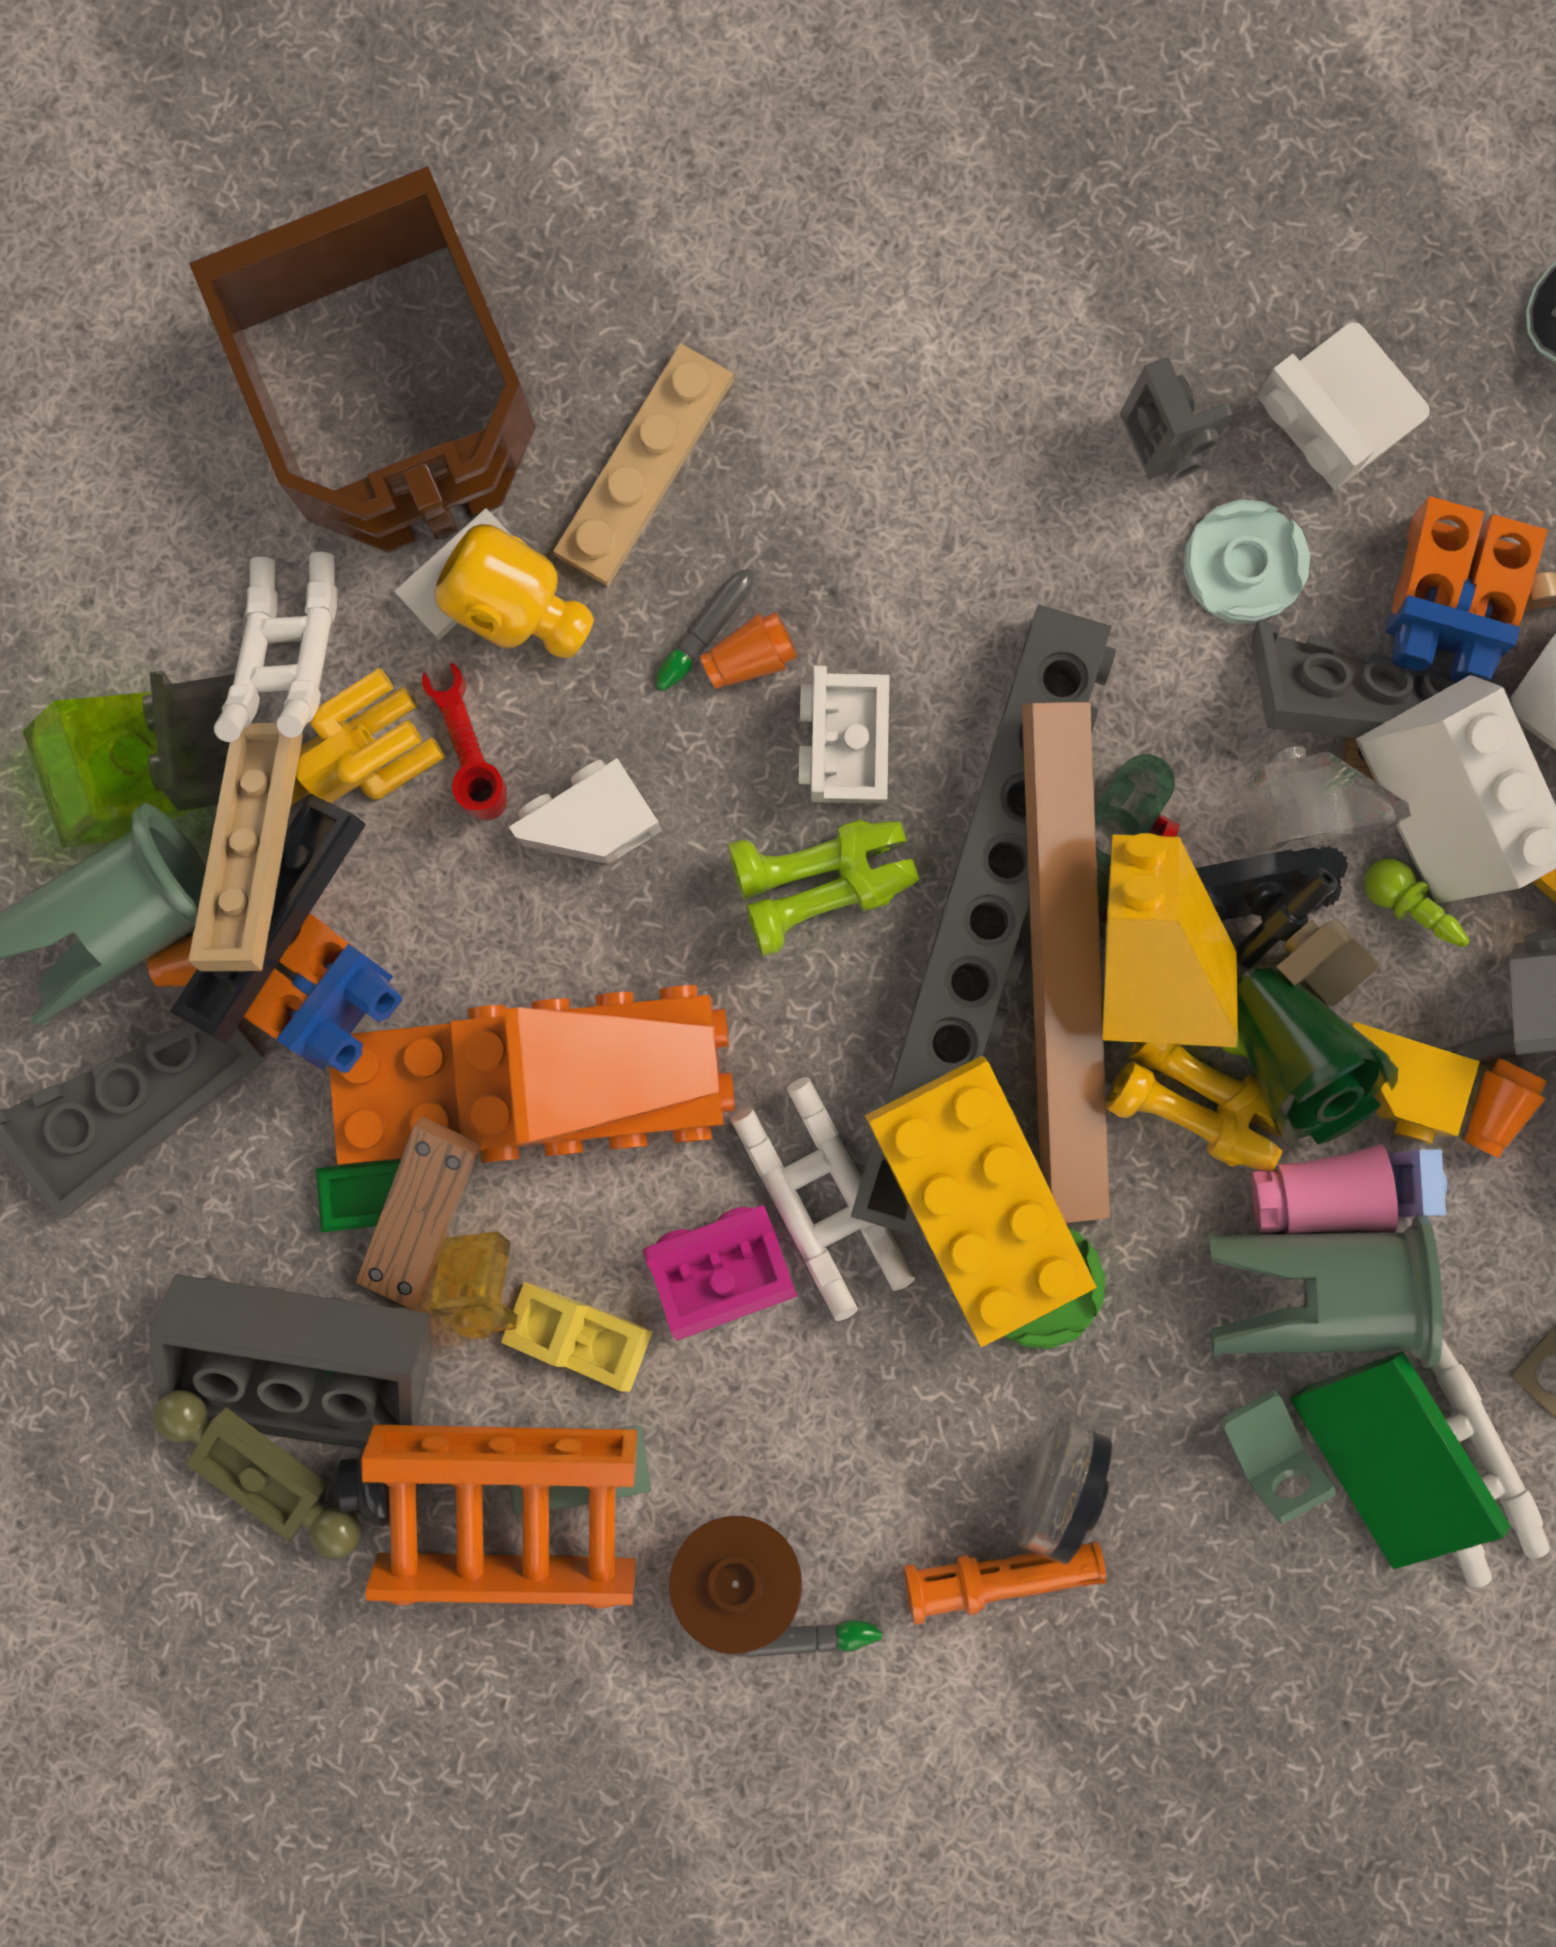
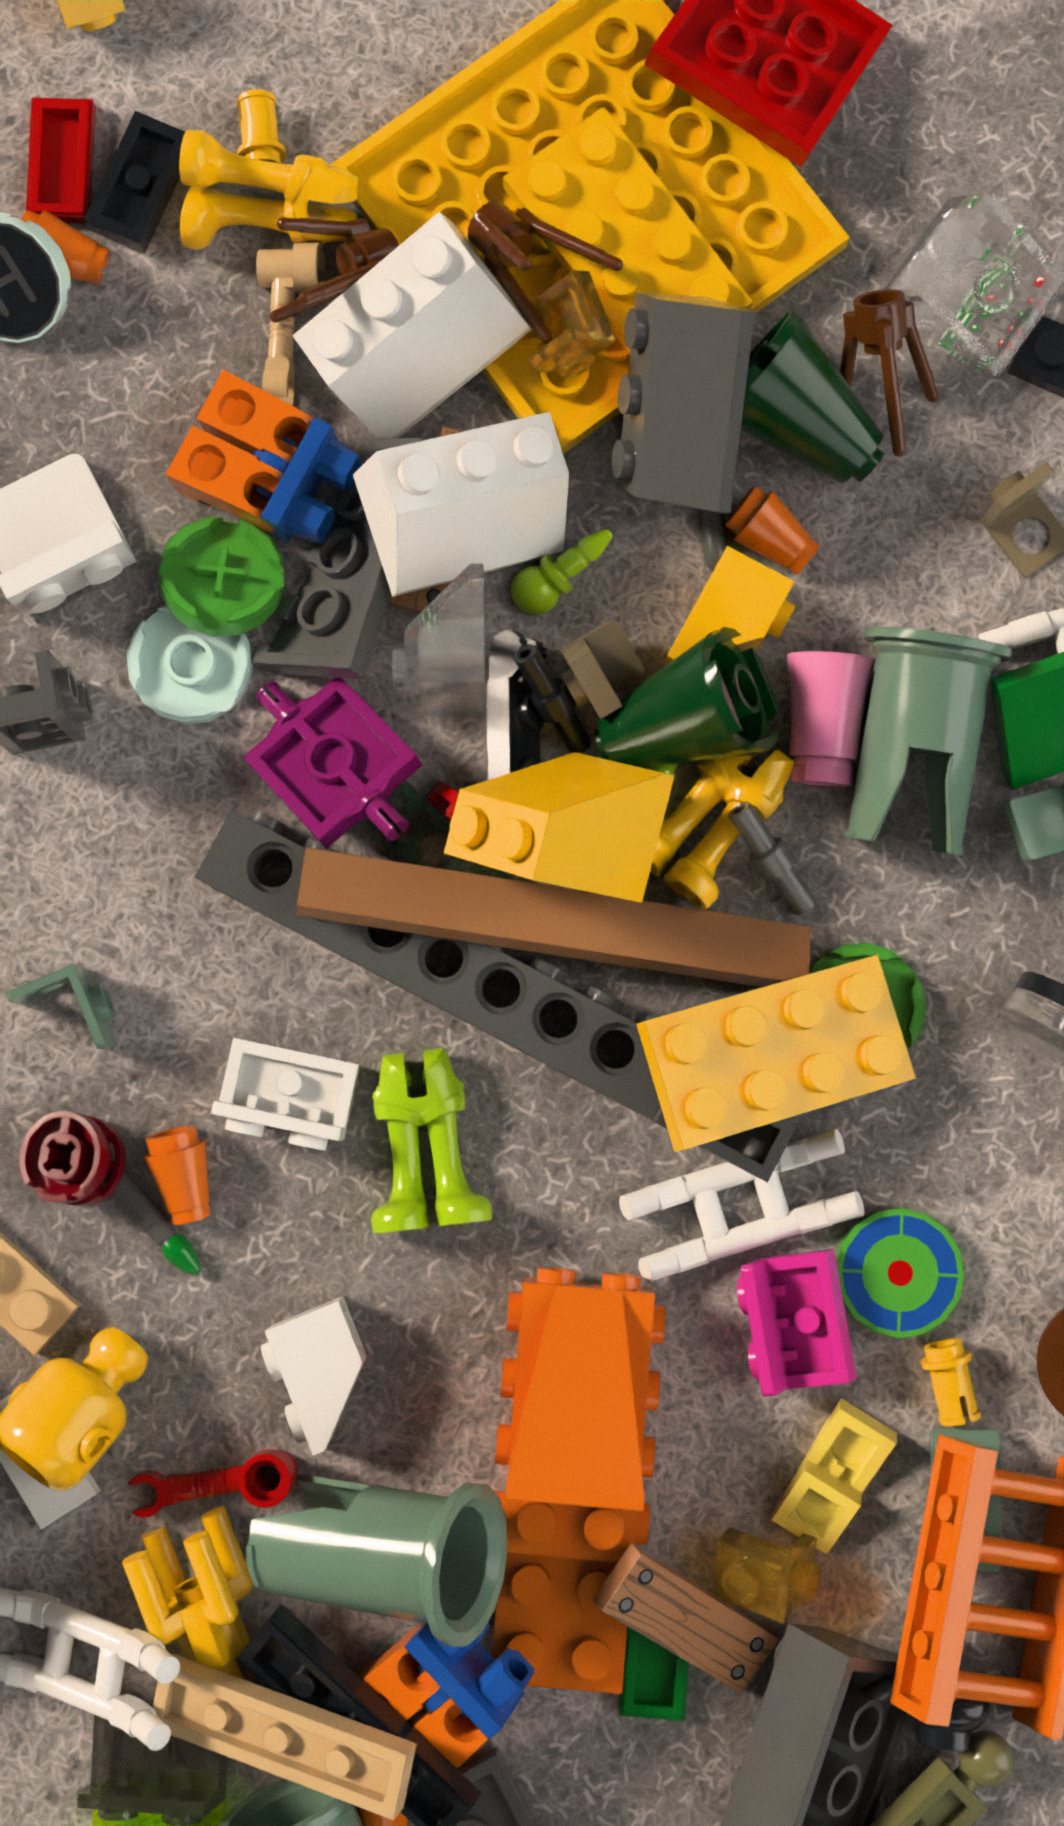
camera: 85 degrees left, 0 degrees up
(432, 914) = (388, 1553): none -> sand green piece
(689, 1436) = (951, 1381): none -> yellow pin
(744, 543) = (69, 1158): none -> dark red wheel
(785, 1367) = (899, 1272): none -> tile
(900, 534) = (92, 999): none -> sand green bracket
(1171, 1166) = (772, 858): none -> dark grey bar
(1178, 715) = (332, 761): none -> magenta plate
(1337, 574) = (221, 576): none -> bright green tile
(1419, 1183) = (831, 627): light blue plate -> none

